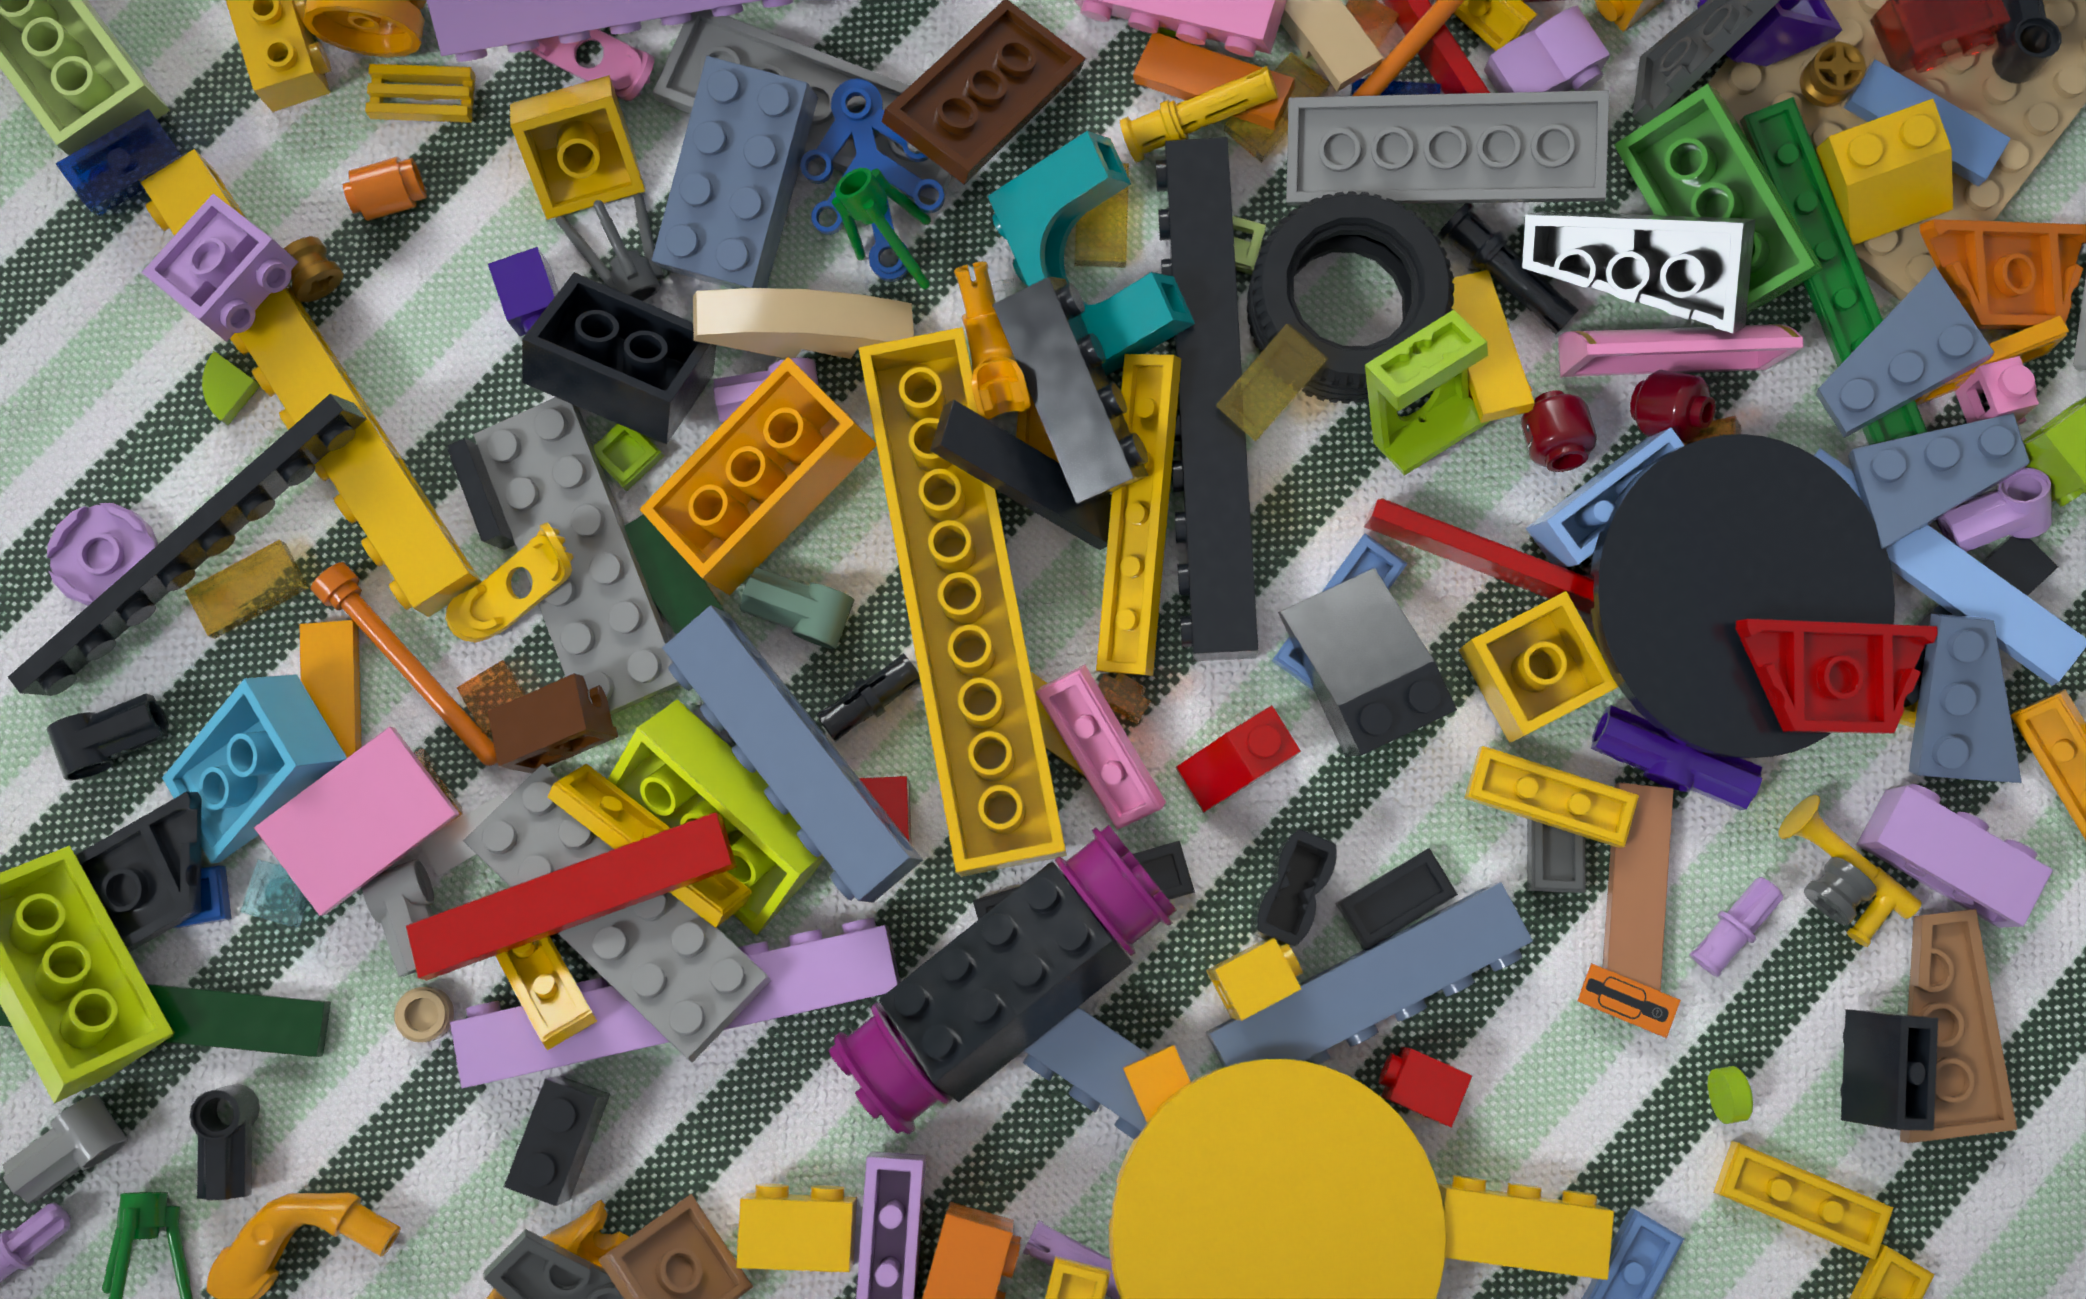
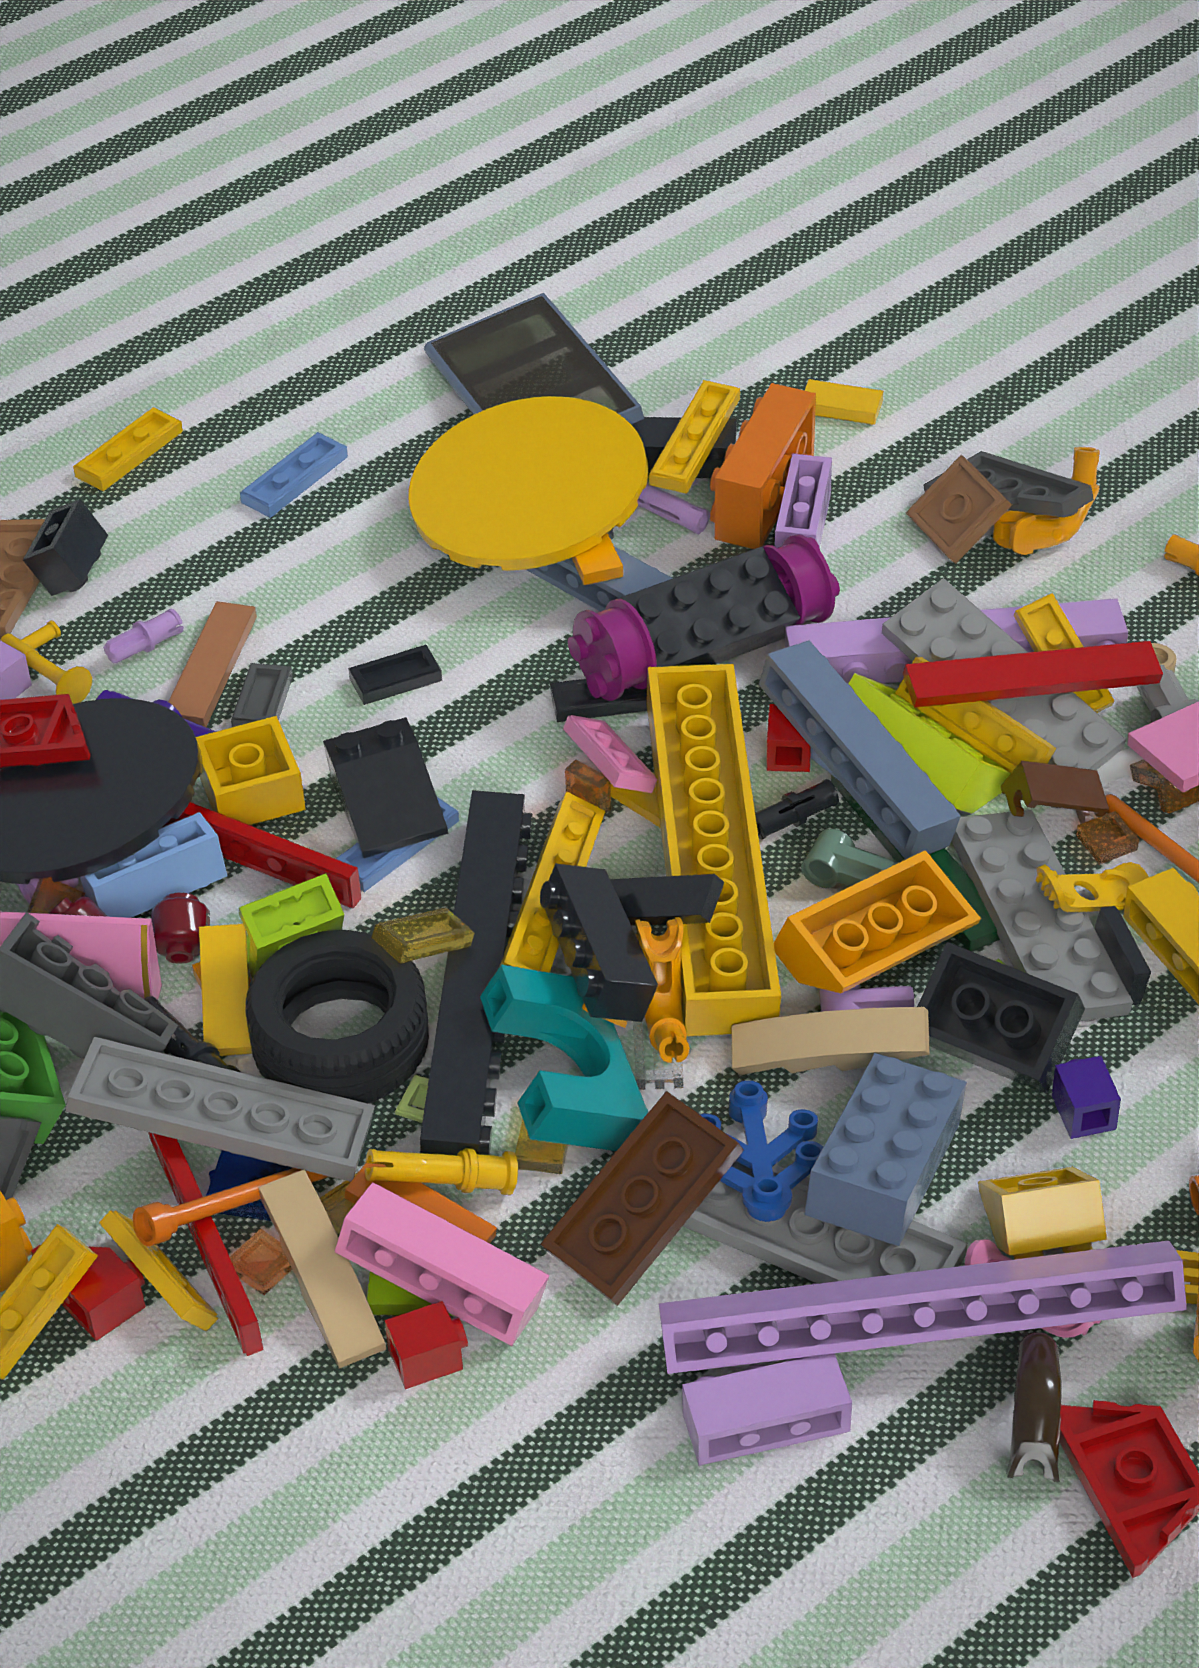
camera: 170 degrees left, 35 degrees down
(557, 1140) = (1048, 570): black brick -> none
(631, 272) = (992, 1109): dark grey plant -> none
(797, 1230) = (871, 529): yellow brick -> none
(863, 198) = (764, 1102): green plant -> none
(1238, 759) = (495, 749): red slope -> none
(1256, 978) = (516, 614): yellow brick -> none
(1297, 874) = (475, 664): black brick -> none
(1381, 982) = (433, 617): sand blue brick -> none
(1424, 1085) = (401, 569): red brick -> none
(1527, 1229) = (351, 498): yellow brick -> none
(1551, 58) = (85, 1196): lavender brick -> none
(1551, 797) = (248, 703): yellow tile -> none
(1628, 1000) = (238, 603): orange sticker -> none
(1730, 1094) = (182, 552): lime tile -> none
(1803, 1200) = (148, 509): yellow tile -> none
(1840, 890) = (60, 645): dark grey wheel -> none

